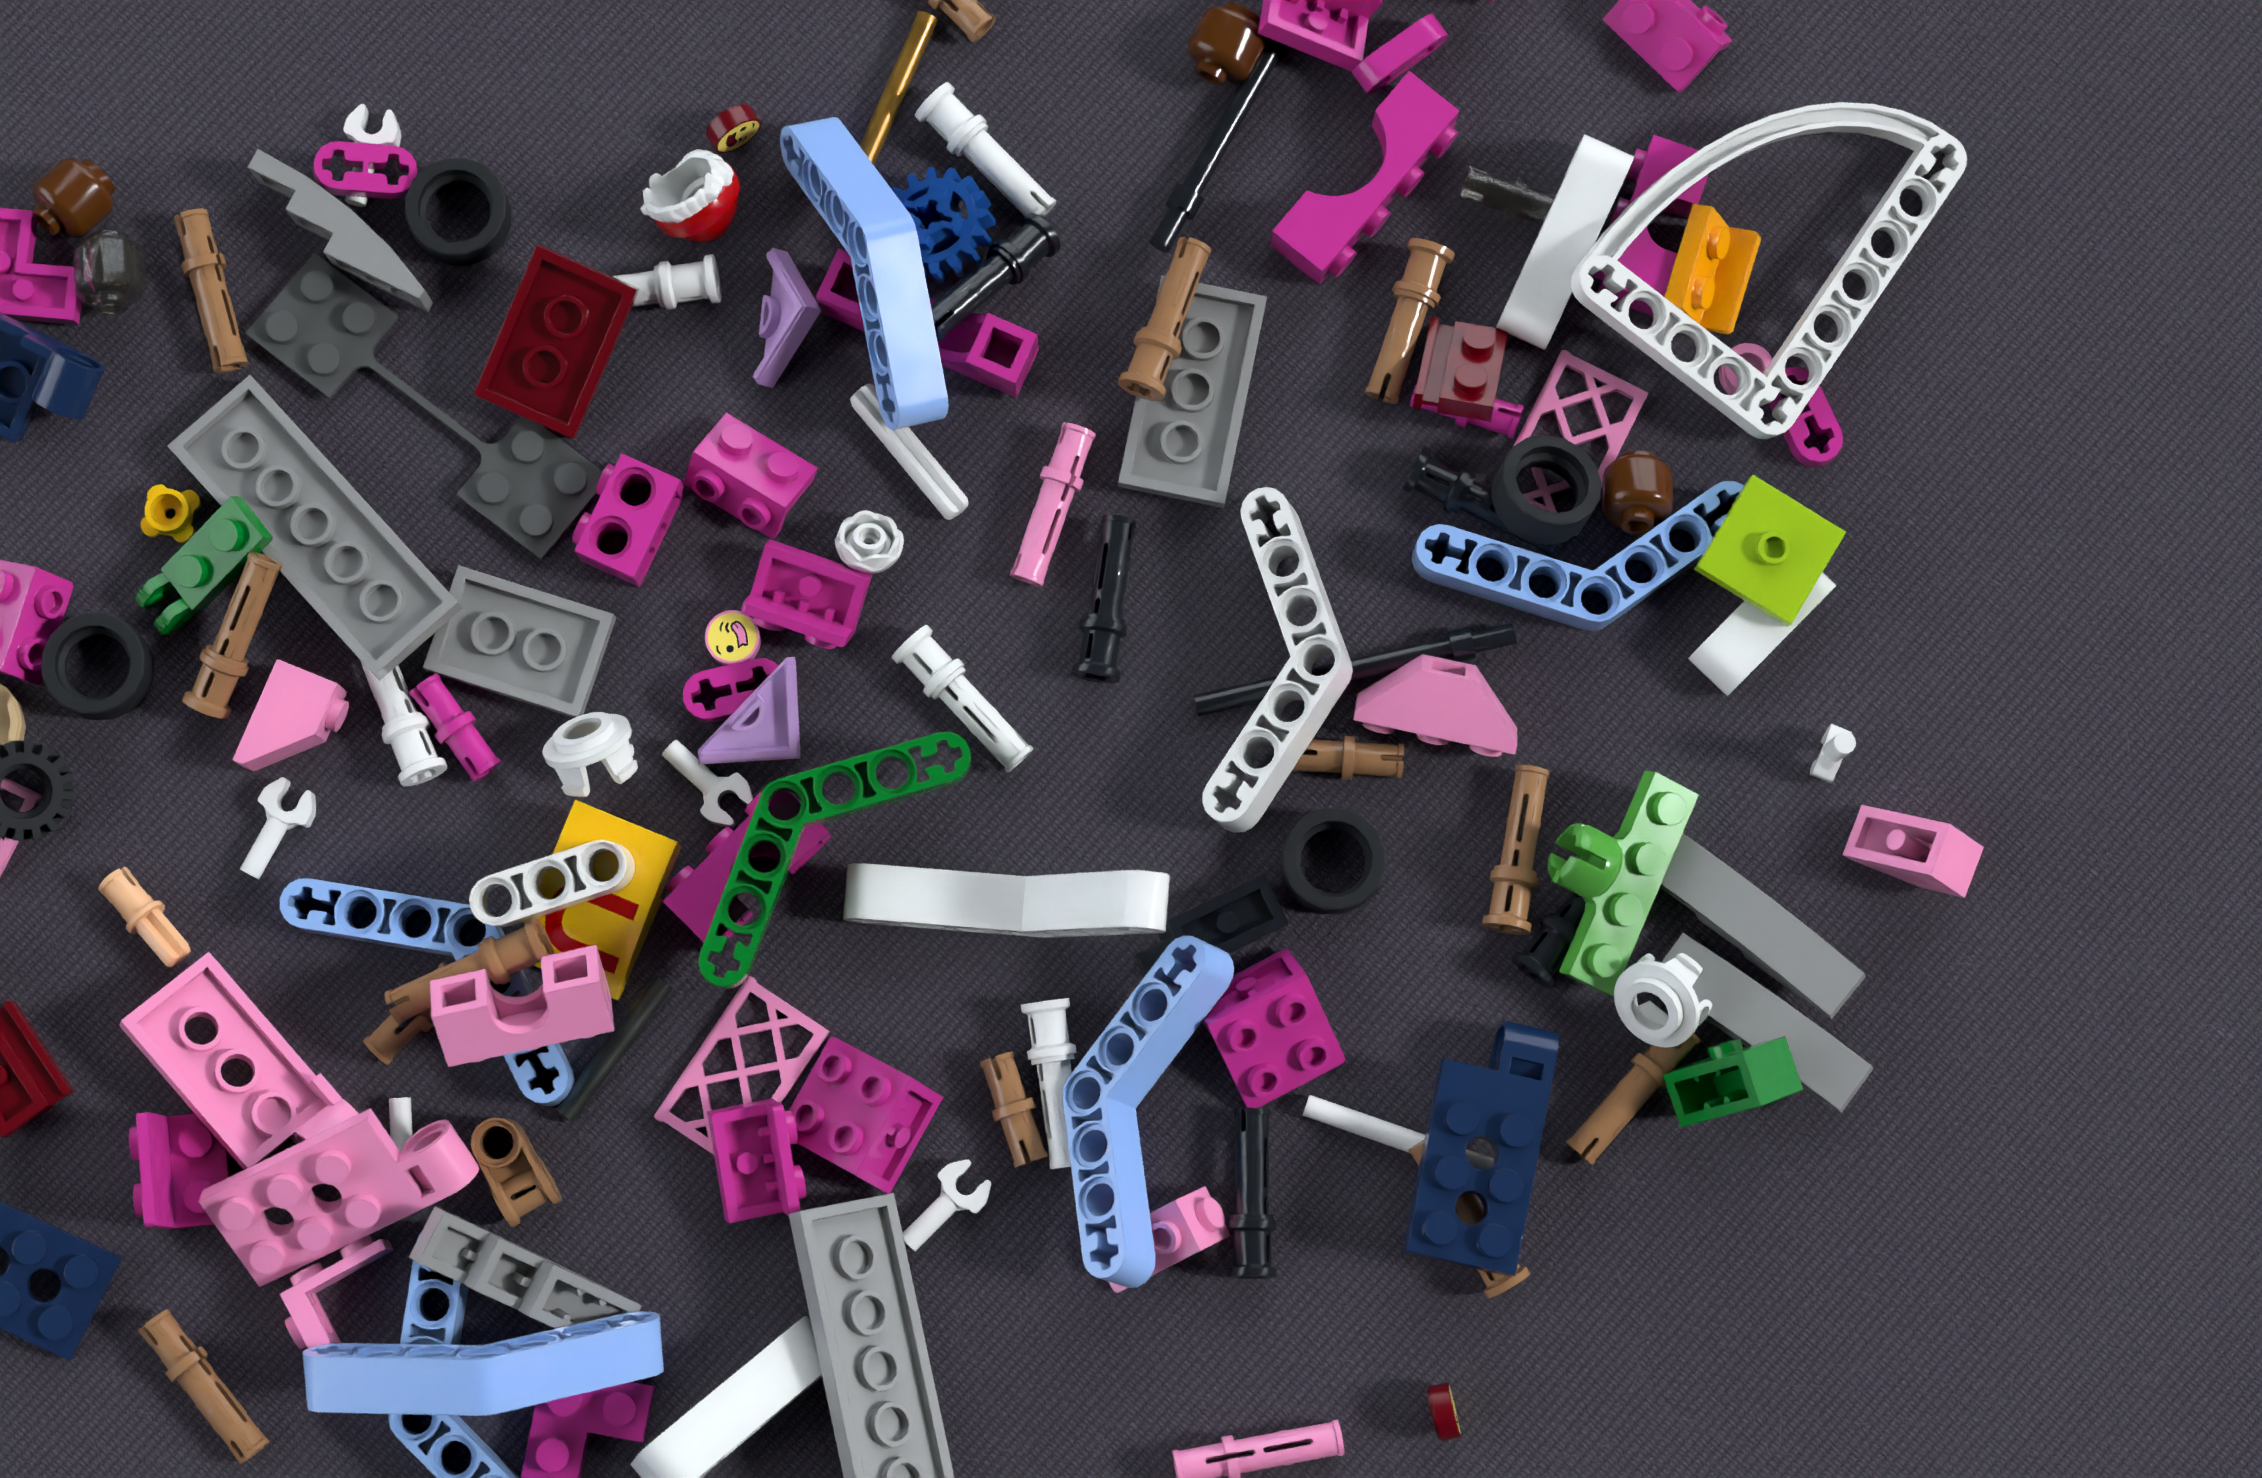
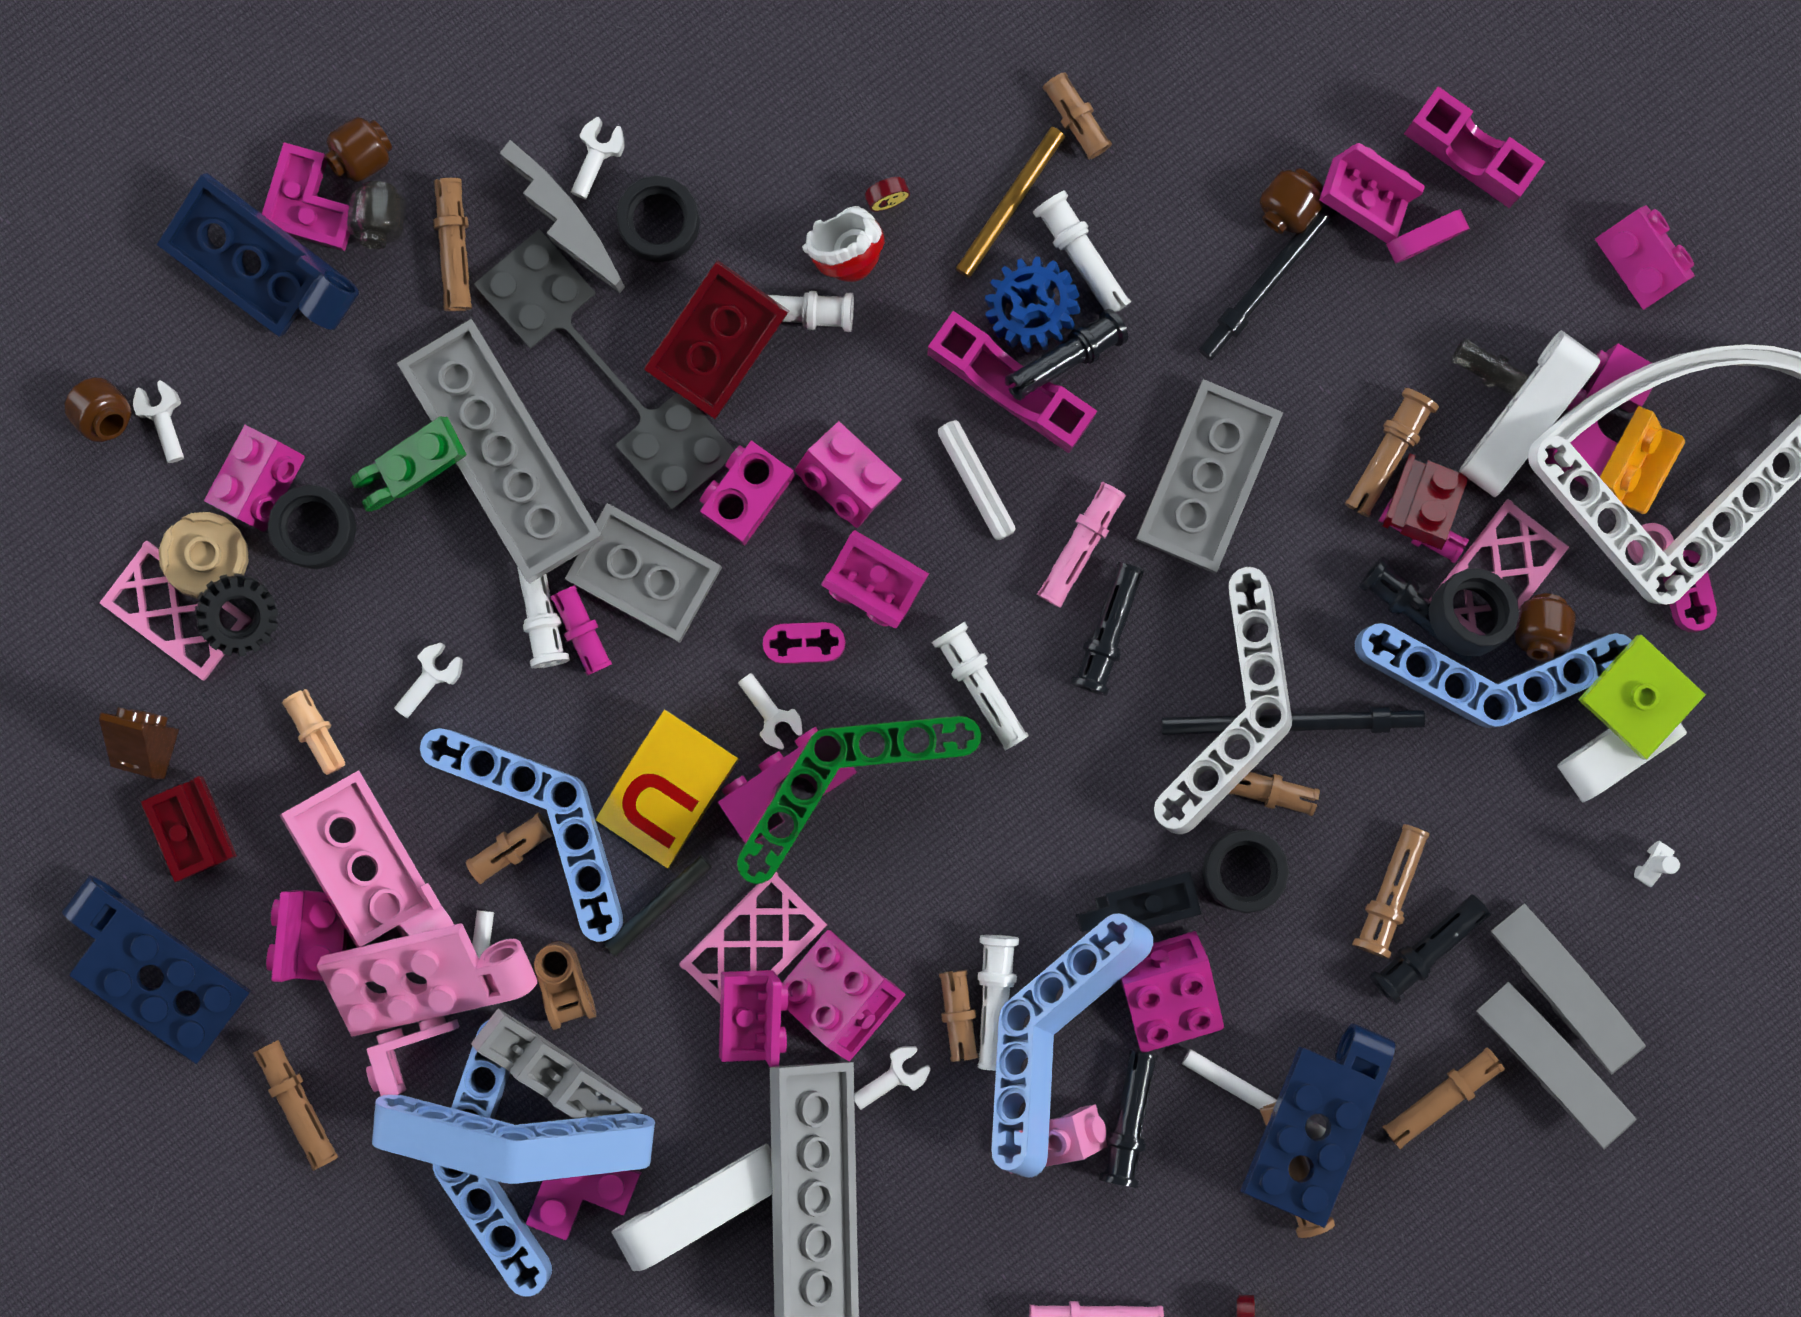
camera: 15 degrees right, 5 degrees up
(159, 502) = (384, 404): yellow plate -> none
(226, 657) = (412, 543): medium nougat pin -> none
(291, 716) = (455, 596): bright pink slope -> none
(365, 157) = (593, 162): dark pink beam -> none
(483, 1024) = (563, 874): bright pink arch -> none
(498, 956) = (579, 825): medium nougat pin -> none
(525, 880) = (613, 774): white beam -> none
(606, 742) = (669, 674): white piece -> none
(732, 637) = (810, 601): light yellow tile -> none
(762, 725) = (820, 676): lavender tile -> none
(784, 317) = (899, 354): lavender tile -> none
(873, 529) = (935, 536): white plate -> none
(884, 263) = (988, 329): light blue beam -> none
(1008, 904) = (987, 856): white beam -> none
(1159, 341) = (1191, 434): medium nougat pin -> none
(1323, 228) = (1420, 298): dark pink arch -> none
(1440, 704) = (1354, 765): bright pink slope -> none
(1619, 878) = (1468, 931): bright green plate -> none
(1673, 985) = (1494, 1027): white piece -> none
(1732, 1080) = (1525, 1110): green brick -> none
(1914, 850) = (1703, 953): bright pink slope -> none

